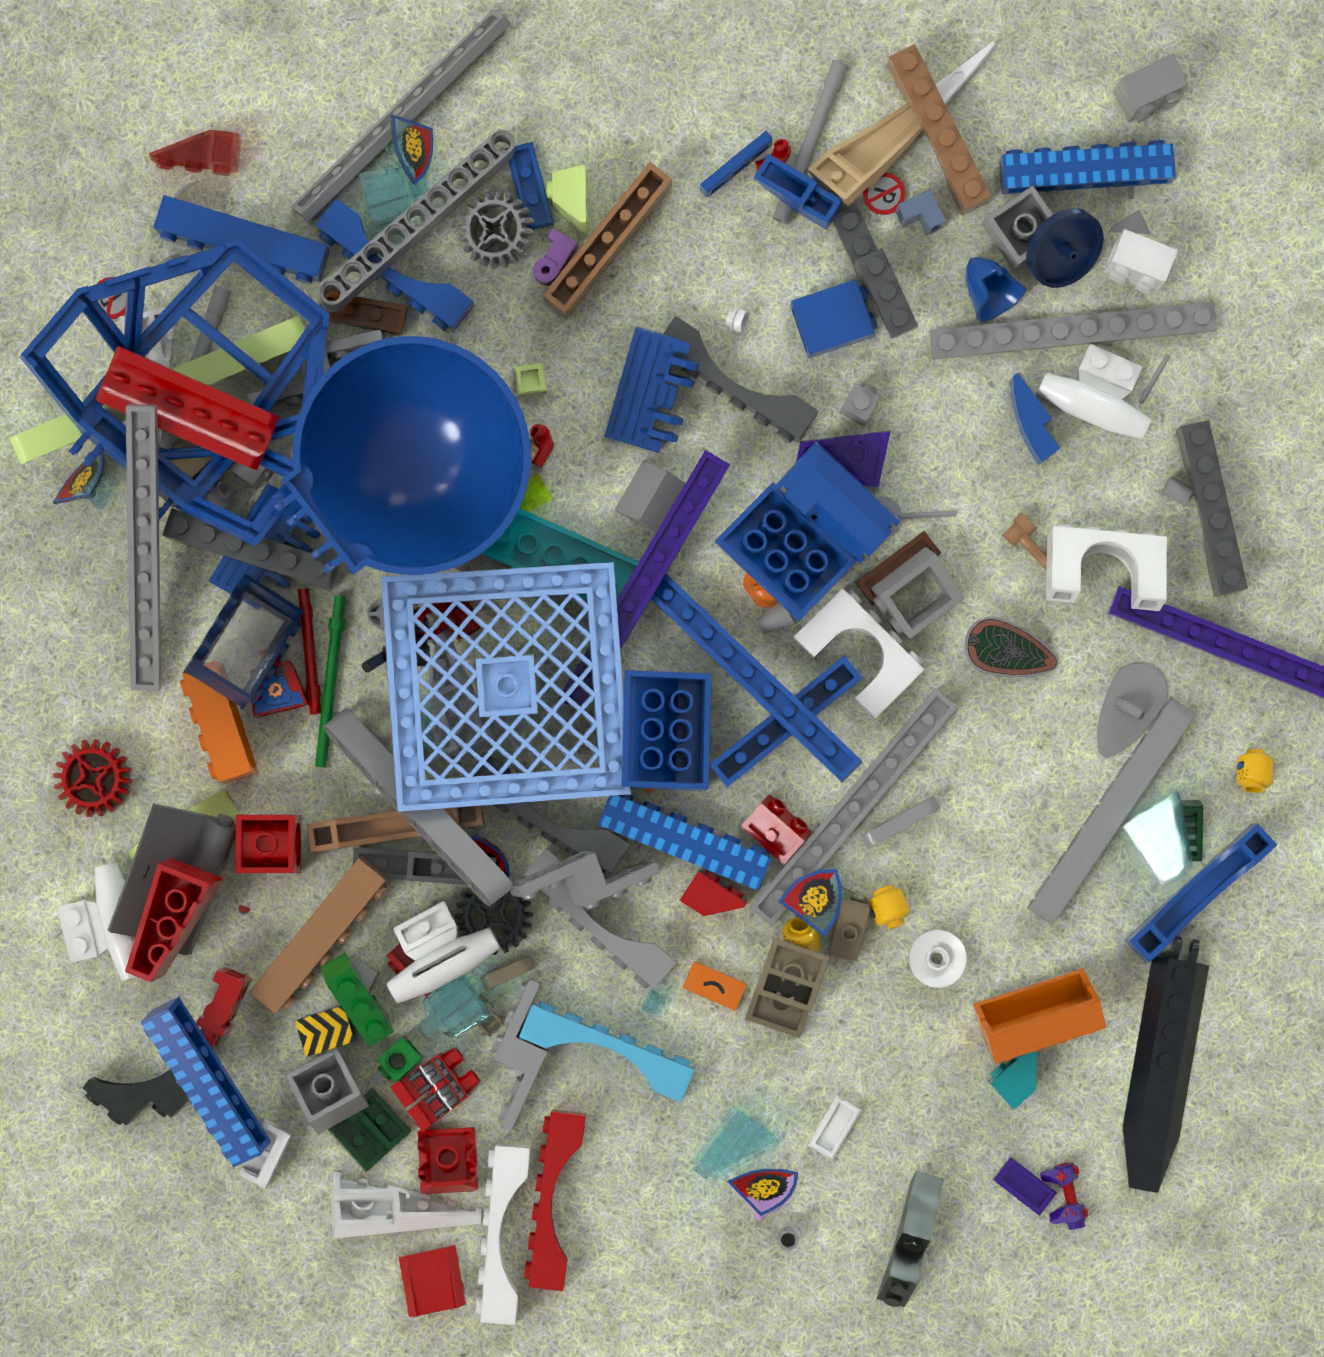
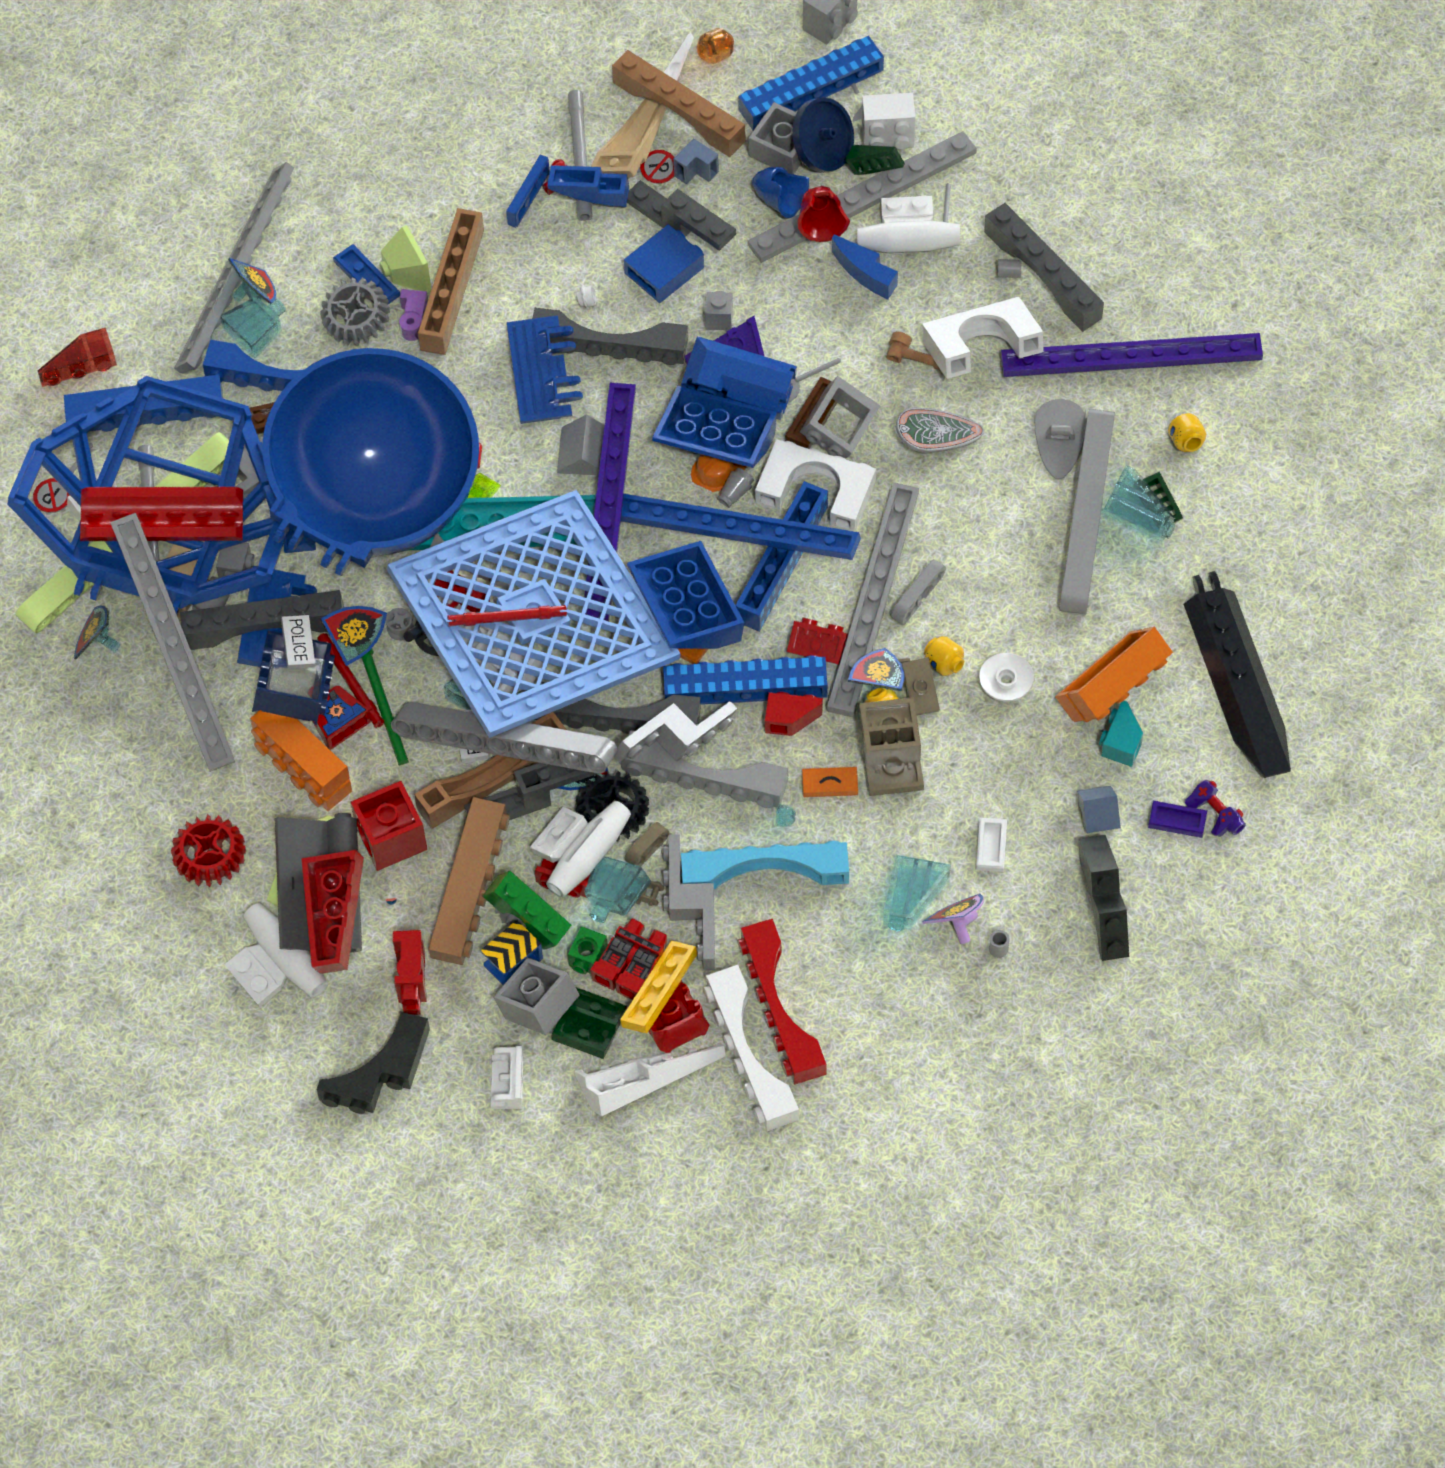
camera: 25 degrees left, 25 degrees down
(205, 1082) = (426, 1026): blue brick -> none
(268, 601) = (298, 642): none -> white tile
(331, 609) = (354, 630): none -> shield
(422, 207) = (288, 322): light grey beam -> none
(432, 1281) = (707, 1117): red slope -> none
(446, 1133) = (658, 987): none -> yellow plate
(509, 696) = (473, 618): none -> red piece
(954, 1142) = (1099, 809): none -> sand blue piece
(1011, 74) = (715, 45): none -> clear orange head
(1015, 344) = (822, 215): none -> red helmet
(1099, 294) = (872, 159): none -> dark green slope
(1199, 891) = (1195, 534): blue arch -> none

